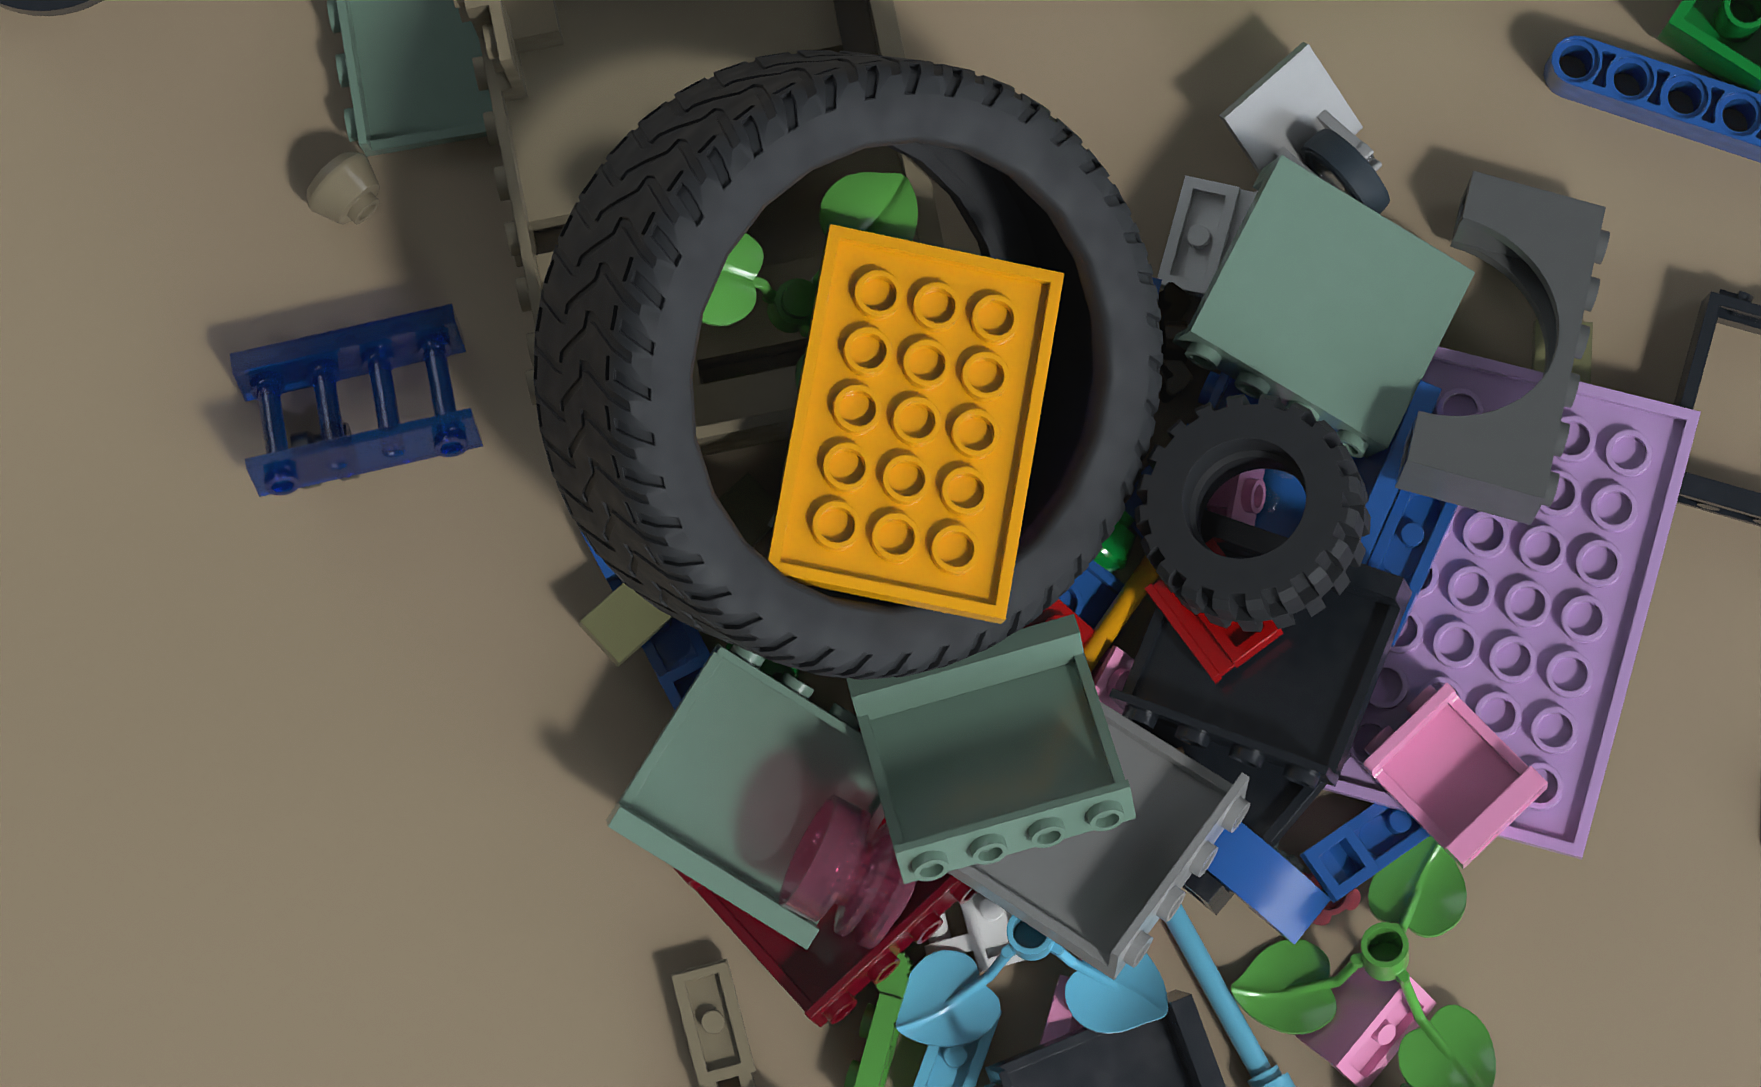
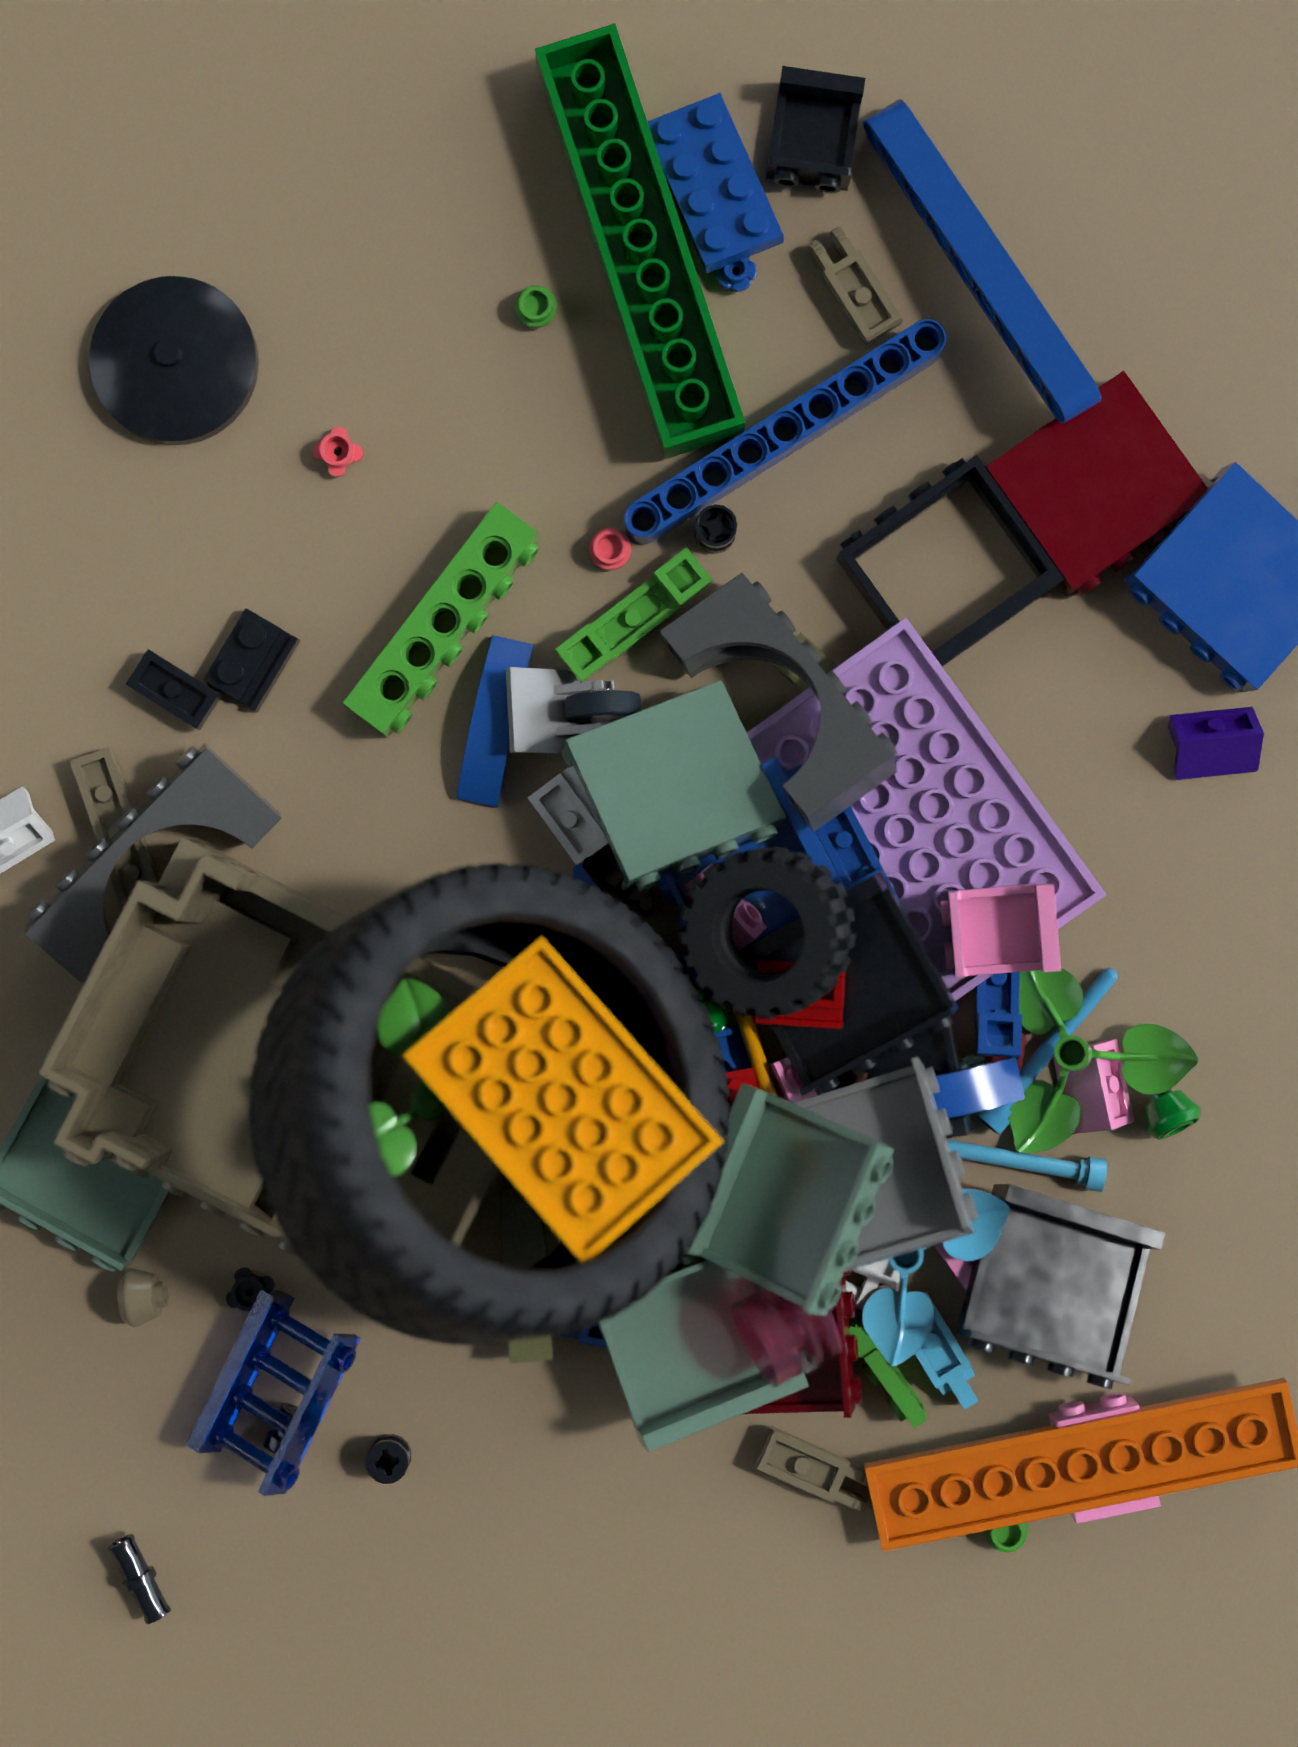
camera: 60 degrees left, 5 degrees up
(48, 420) = (139, 1579): none -> black pin
(384, 587) = (388, 1449): none -> black wheel
(443, 284) = (245, 1279): none -> black plate
(1206, 89) = (488, 734): none -> blue slope
(1253, 934) = (997, 1118): none -> dark azure piece
(1465, 137) = (634, 616): none -> bright green slope
(1516, 56) = (610, 549): none -> coral plate
(1636, 139) = (718, 521): none -> black wheel

